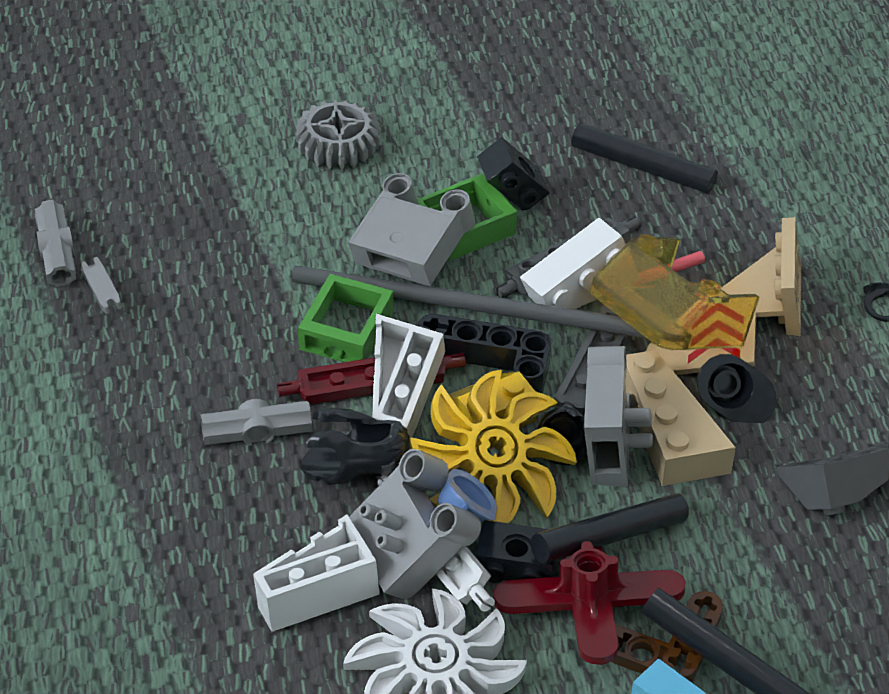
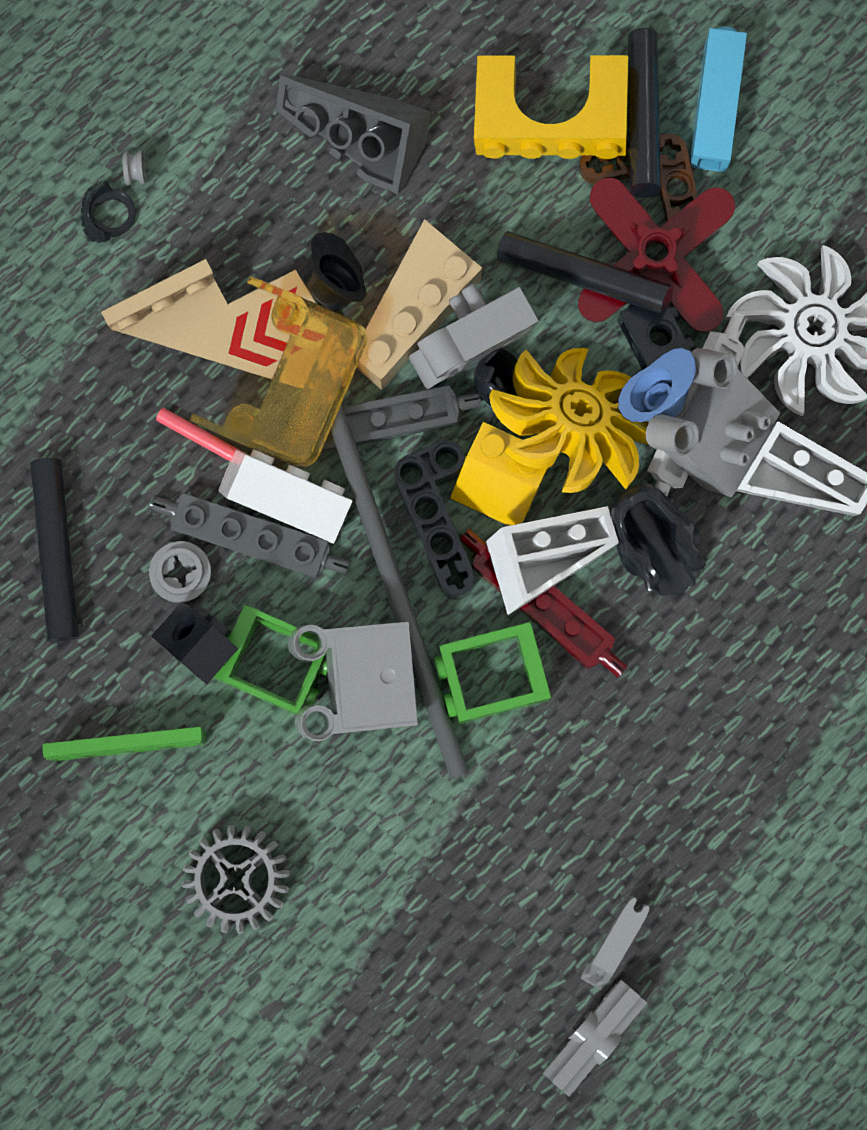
camera: 125 degrees left, 35 degrees up
(256, 422) = (674, 661): light grey piece -> none
(476, 127) = (124, 744): none -> bright green tile
(564, 201) = (164, 563): none -> light grey gear
(784, 554) = (594, 131): none -> yellow arch

